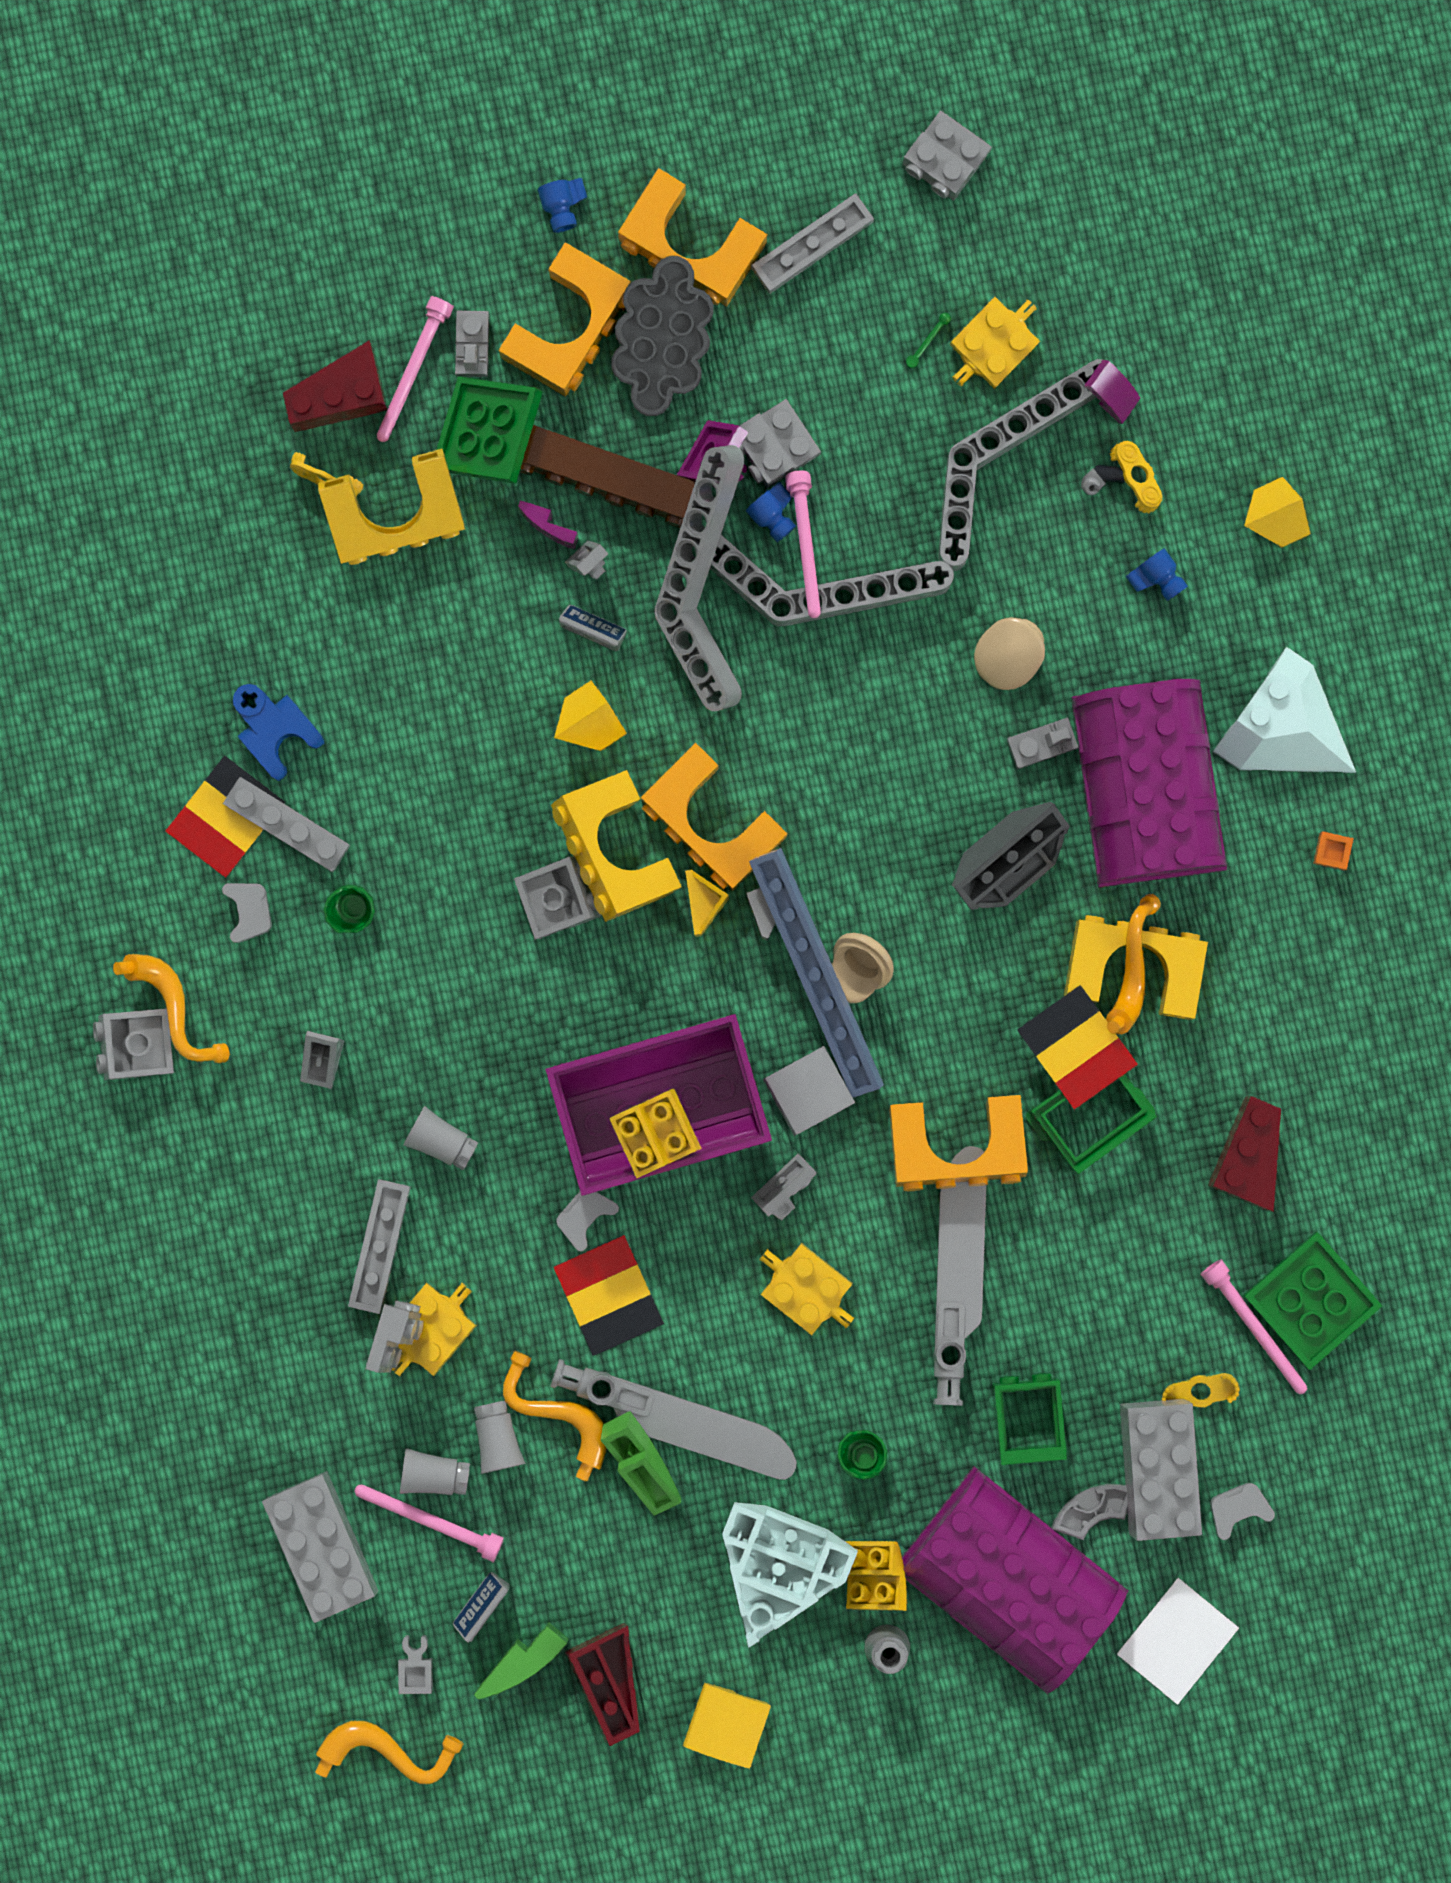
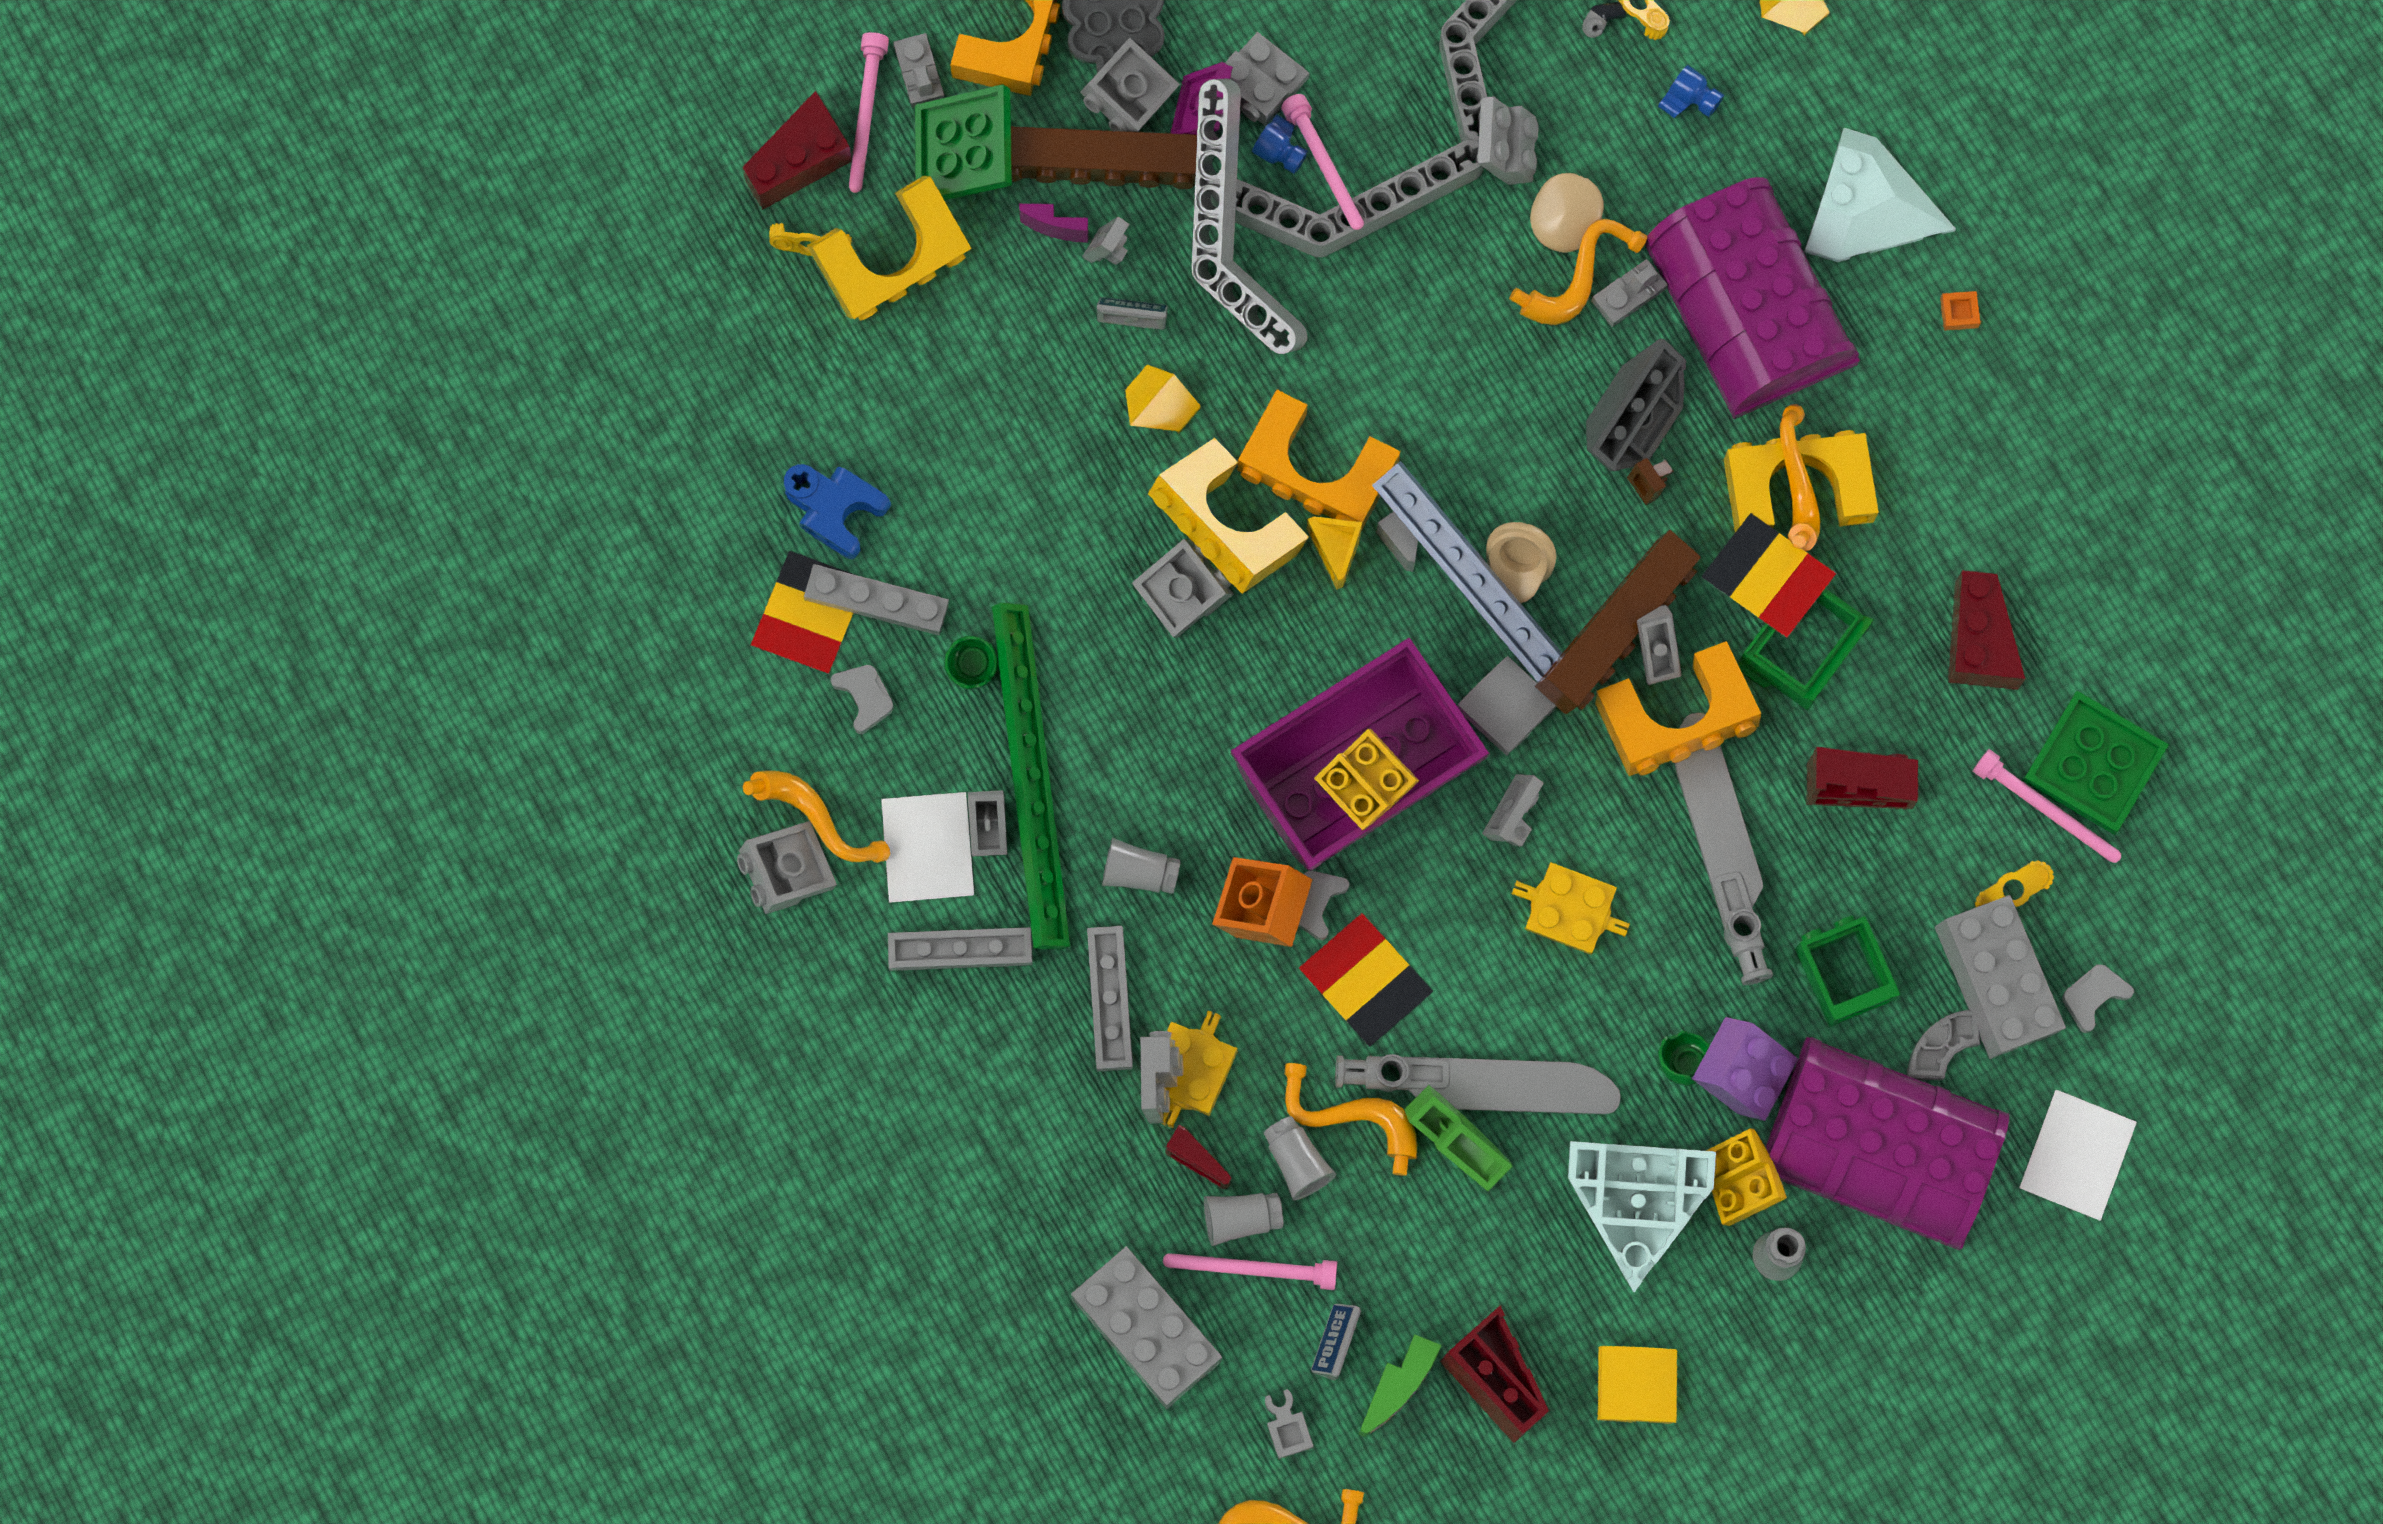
camera: 20 degrees left, 10 degrees down
(263, 1162) = (959, 949): none -> light grey plate
(264, 1060) = (927, 847): none -> white sticker
(371, 1026) = (1031, 776): none -> green plate
(408, 1408) = (1191, 1154): none -> dark red slope
(535, 1206) = (1262, 901): none -> orange brick
(652, 420) = (1129, 88): none -> light grey plate
(908, 1483) = (1745, 1068): none -> medium lavender brick
(929, 1049) = (1614, 625): none -> reddish brown brick
(958, 1081) = (1659, 646): none -> light grey slope
(975, 573) = (1507, 141): none -> light grey plate
(981, 740) = (1569, 304): none -> light orange animal
(1001, 923) = (1649, 479): none -> reddish brown tile
(1100, 1254) = (1861, 779): none -> dark red wedge

